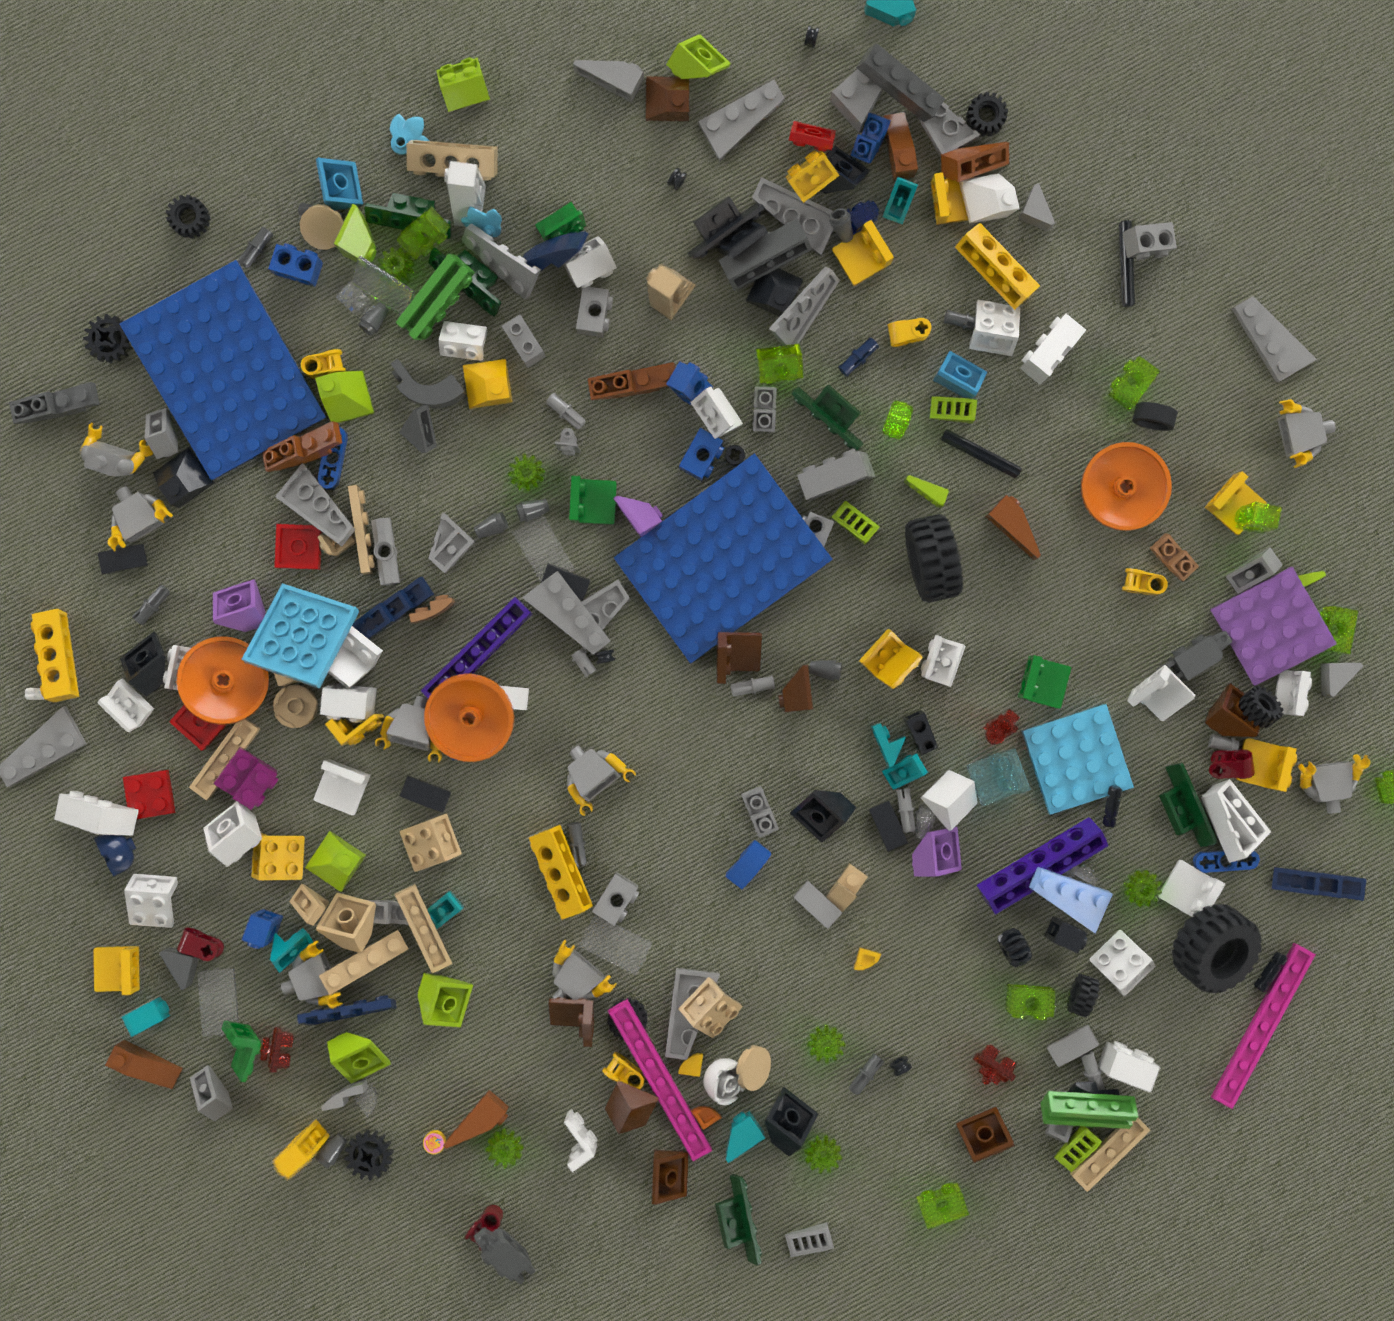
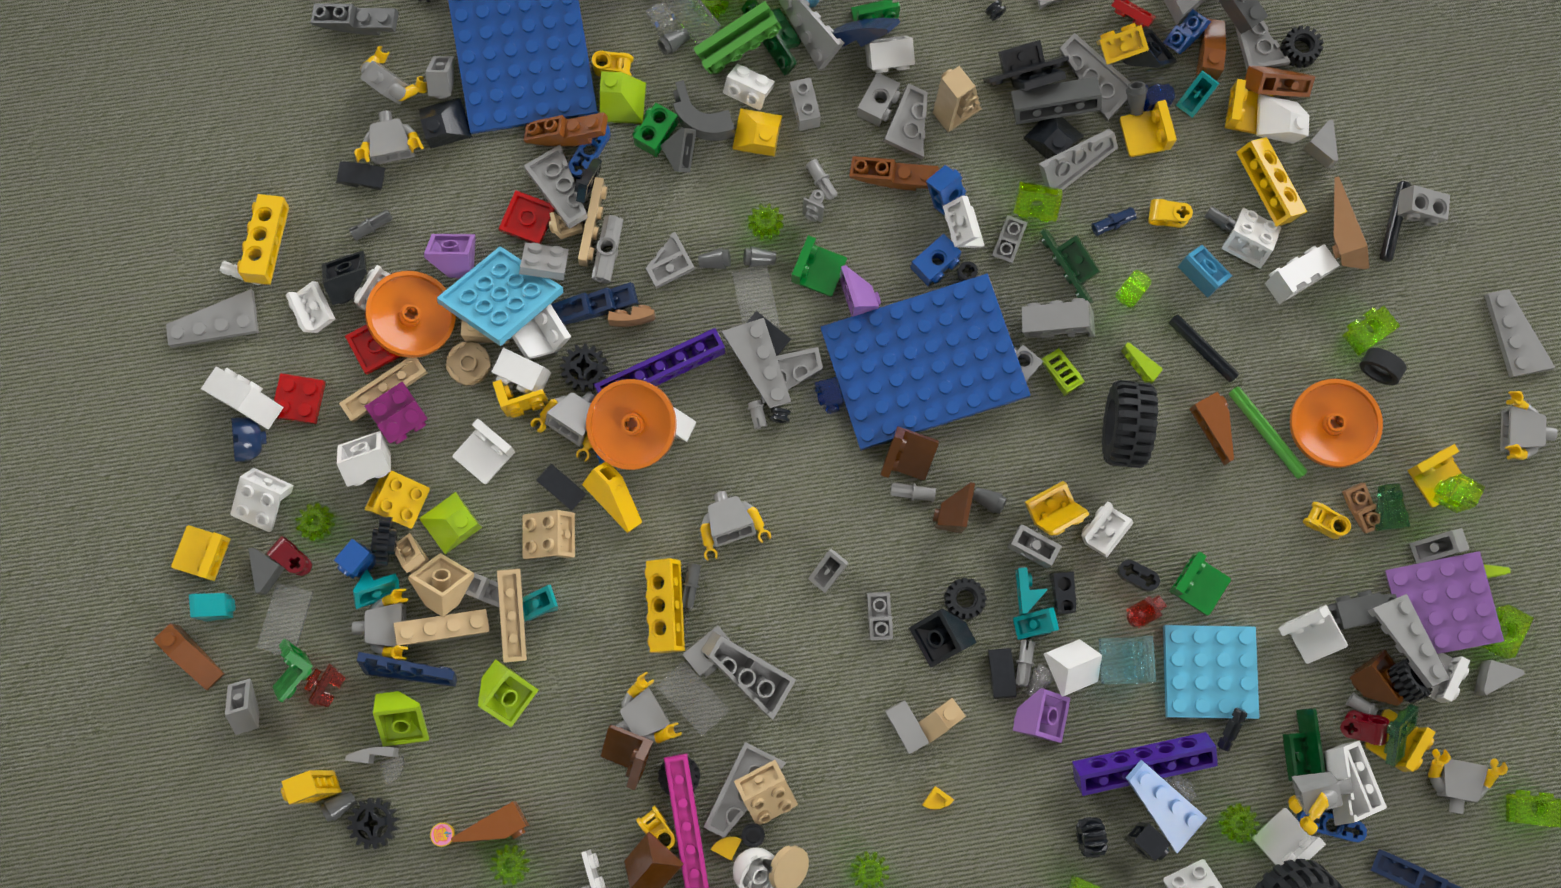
camera: 15 degrees right, 10 degrees down
(217, 900) = (320, 514): none -> clear neon green gear
(281, 903) = (384, 541): none -> black gear
(329, 586) = (544, 261): none -> light grey plate
(341, 500) = (585, 184): none -> black hinge
(394, 416) = (660, 131): none -> green brick
(414, 672) = (575, 367): none -> black gear
(476, 786) = (613, 495): none -> yellow slope
(630, 325) = (908, 123): none -> light grey wing
(644, 621) = (829, 395): none -> clear blue brick
(662, 909) = (752, 675): none -> light grey wedge
(698, 787) = (828, 570): none -> light grey slope
(711, 1047) = (753, 835): none -> black plate
(748, 865) = (851, 663): blue slope -> none
(846, 769) = (977, 592): none -> black tyre
(881, 700) = (1034, 546): none -> light grey brick
(972, 403) = (1186, 305): lime slope -> none
(984, 698) = (1142, 571): none -> black beam
(1065, 515) = (1268, 432): none -> bright green axle
(1085, 299) = (1348, 237): none -> medium nougat wedge
(1199, 550) = (1391, 508): none -> clear green wing
(1204, 845) = (1316, 794): none -> light grey torso
(1242, 661) = (1411, 639): none -> light grey wing
(1263, 760) = (1398, 732): none -> clear green plate

